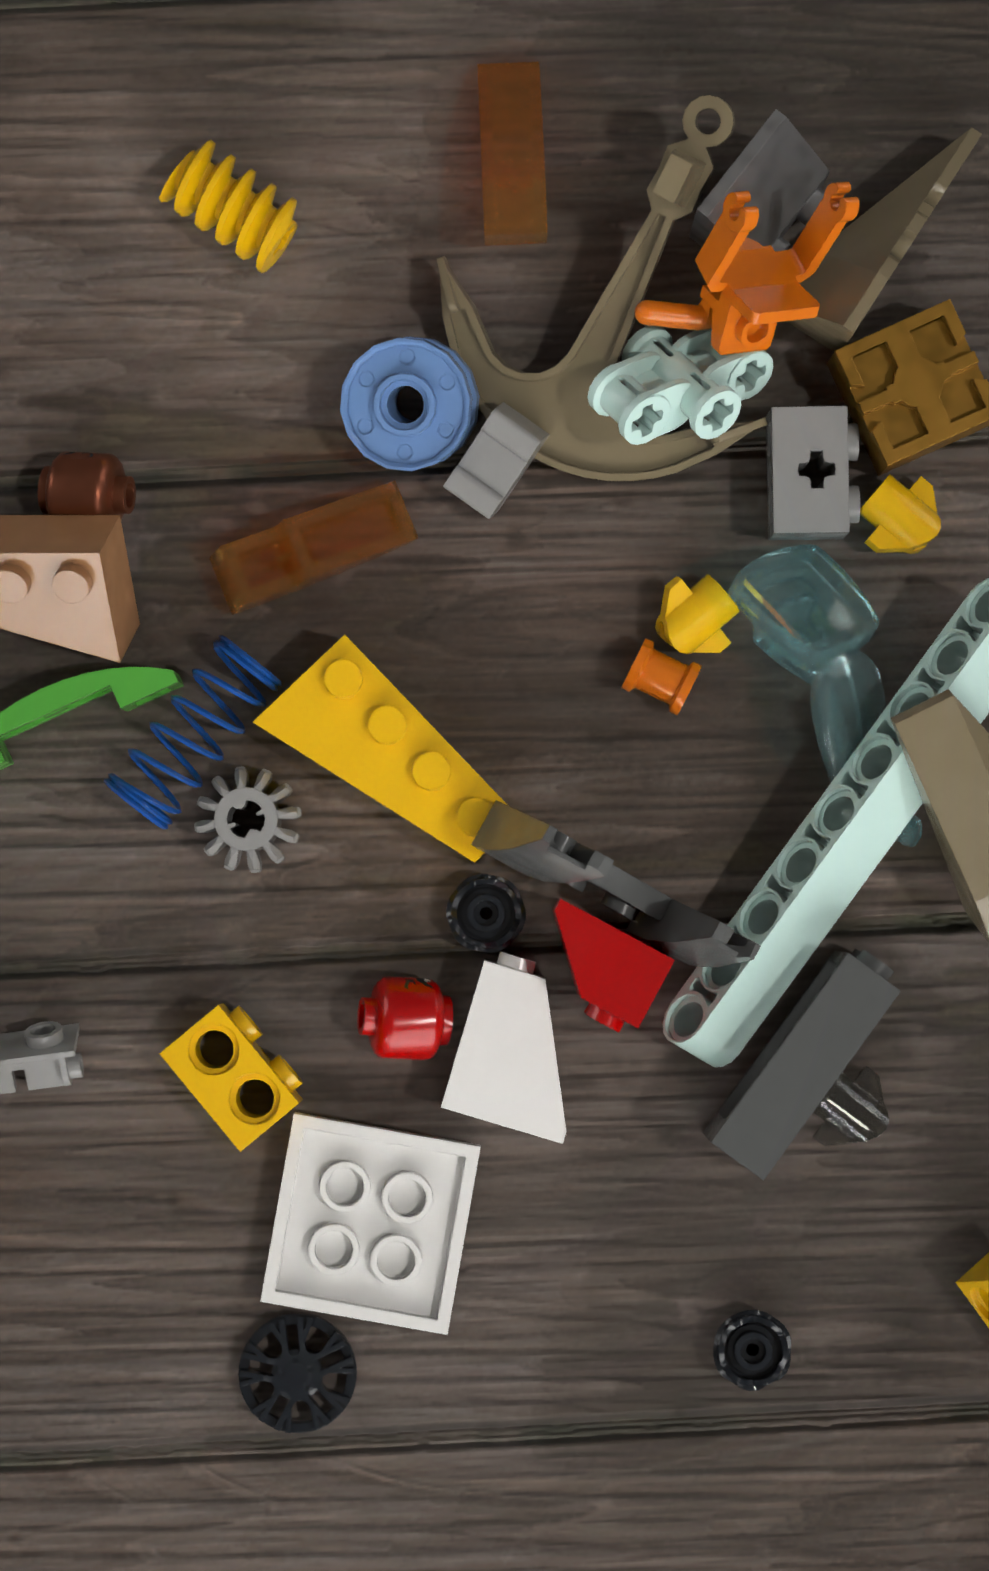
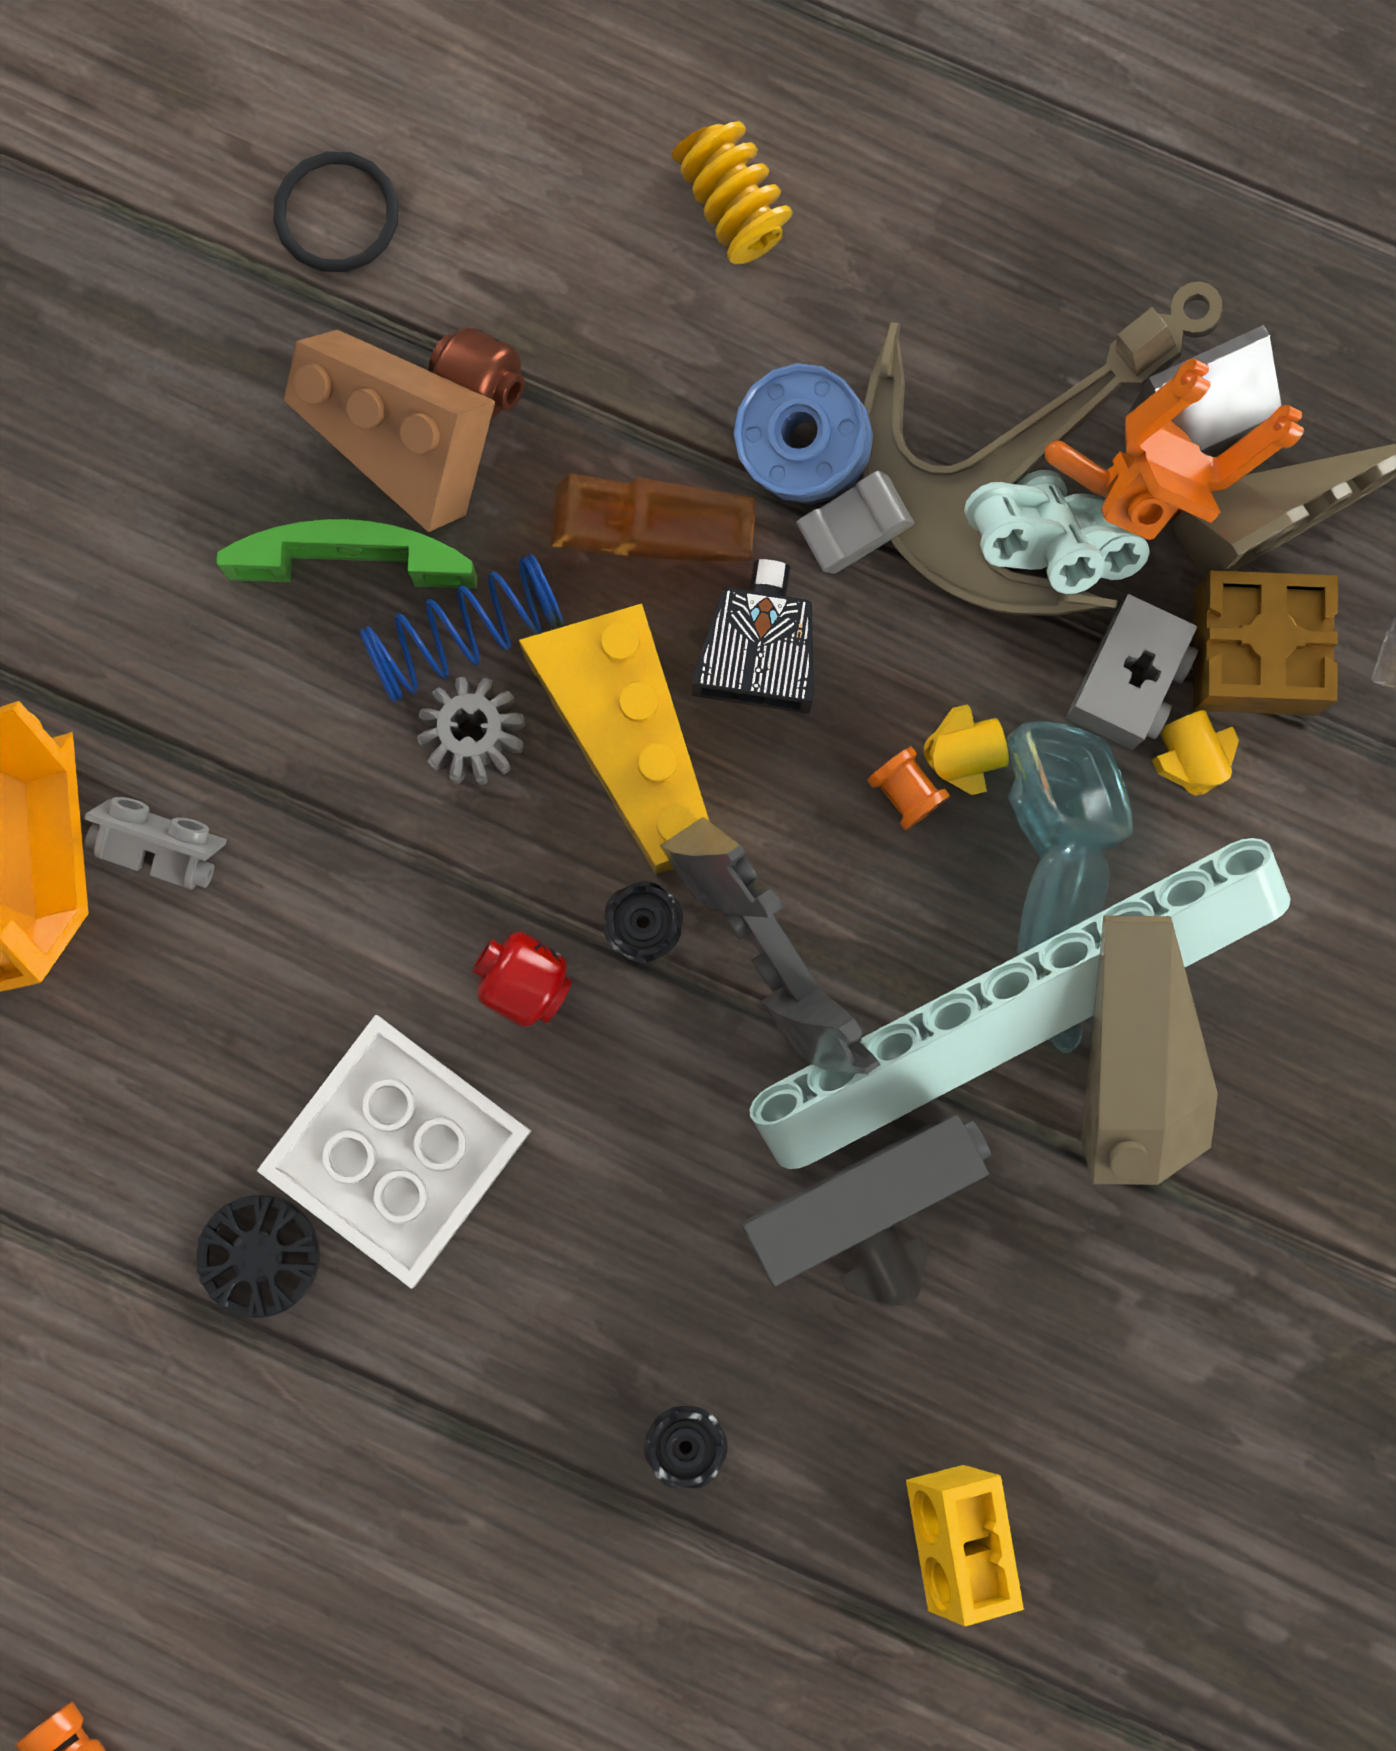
camera: 25 degrees right, 5 degrees down
(220, 1086) = (323, 957): yellow brick -> none
(465, 613) = (759, 645): none -> black torso
(508, 1053) = (598, 1057): white slope -> none
(512, 154) = (1002, 268): clear orange slope -> none
(609, 967) = (731, 1020): red slope -> none

